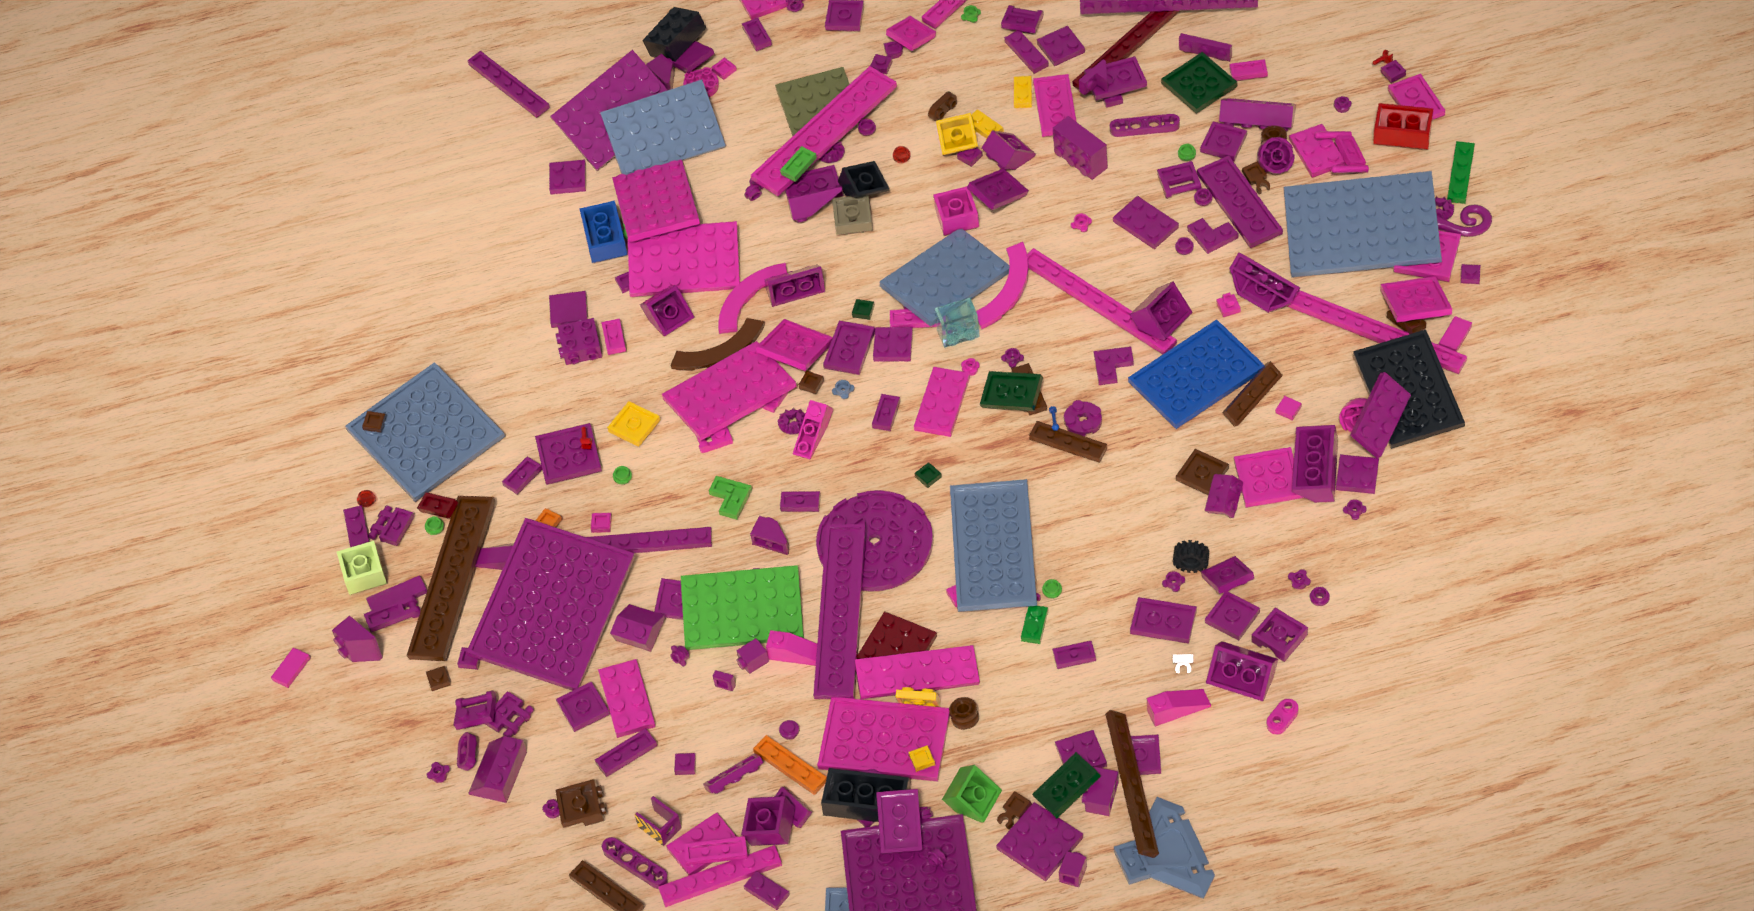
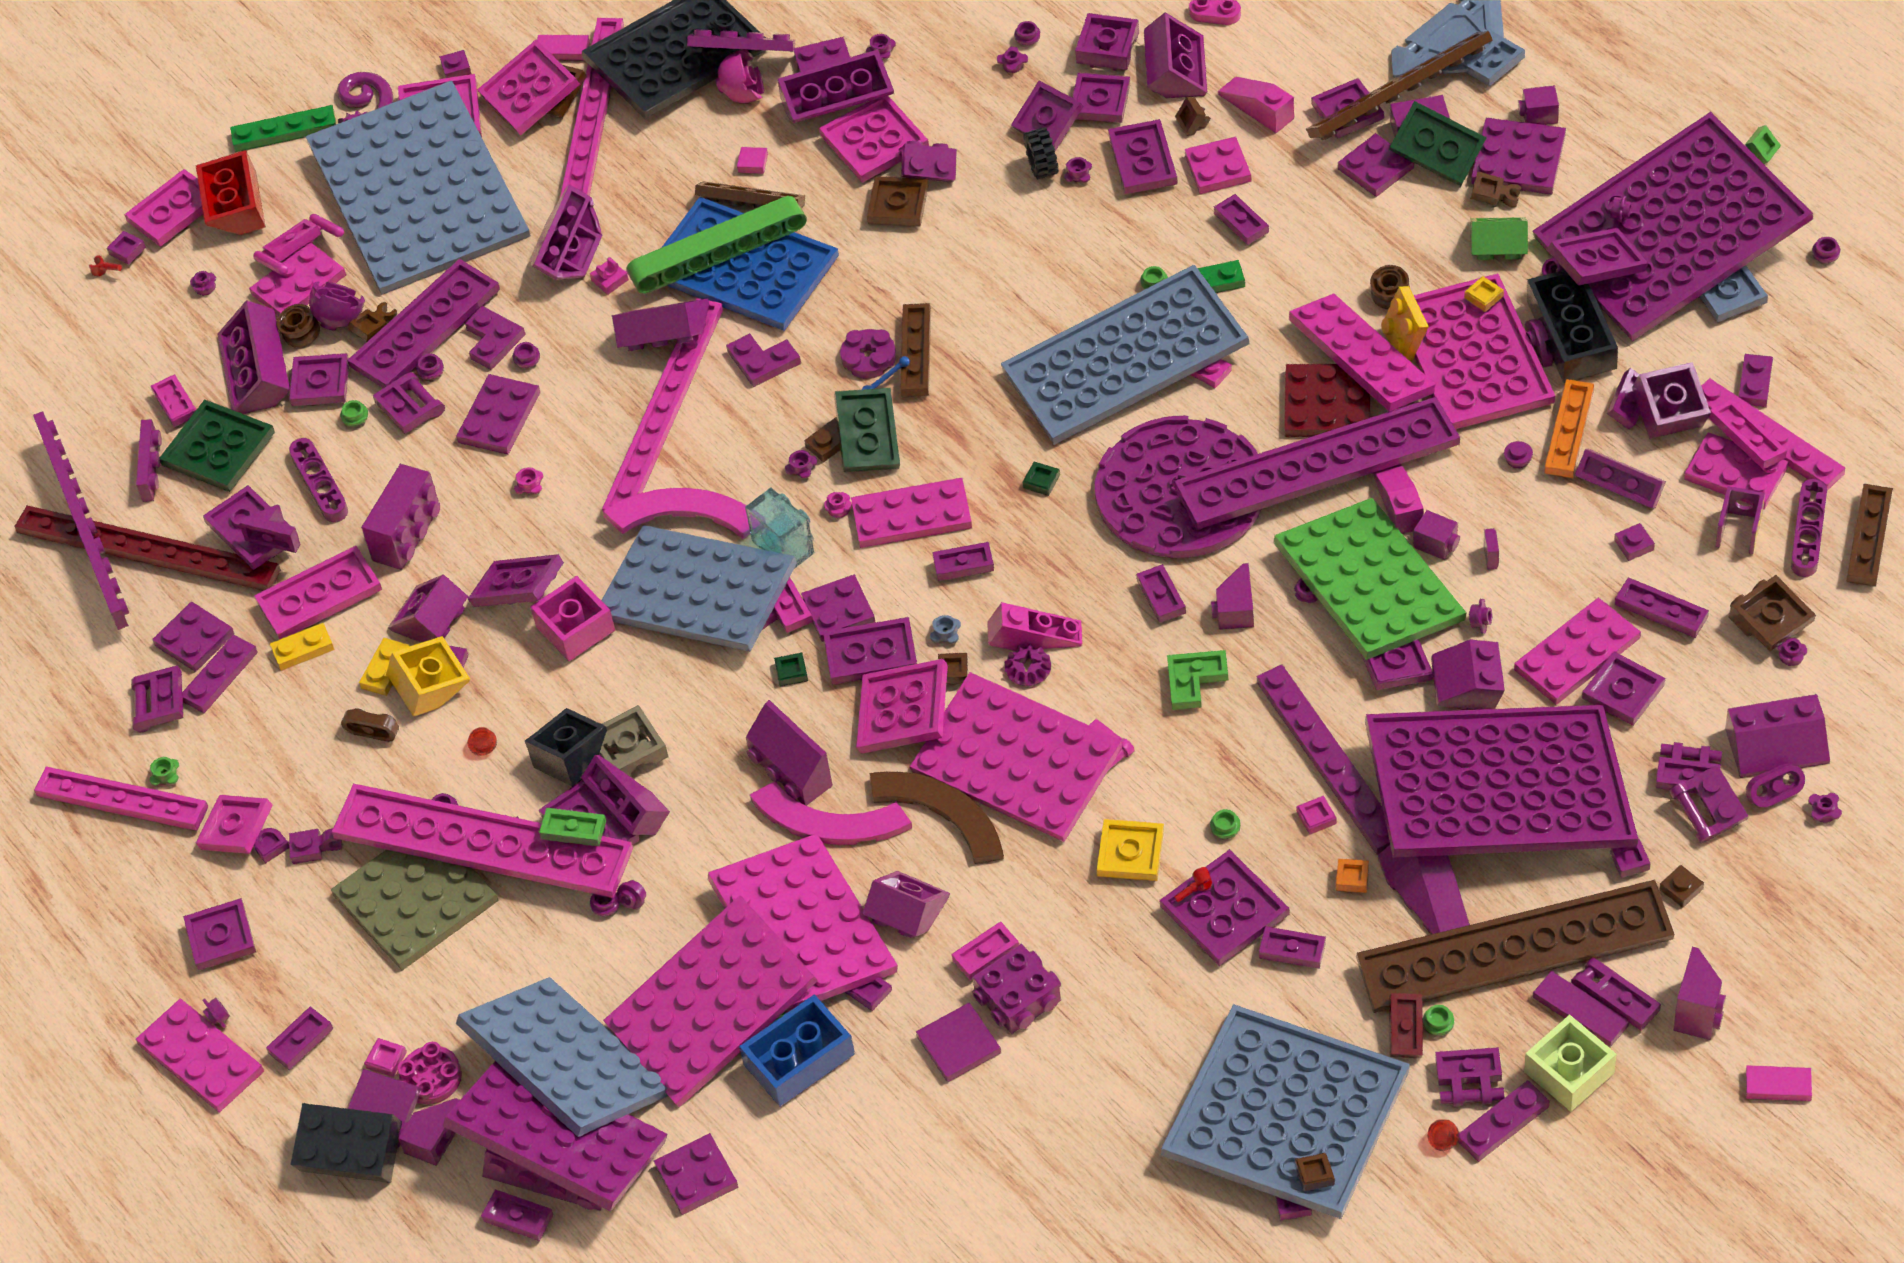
camera: 115 degrees left, 0 degrees up
(1134, 663) = (1218, 165): none -> dark pink plate
(1209, 356) = (716, 244): none -> bright green beam

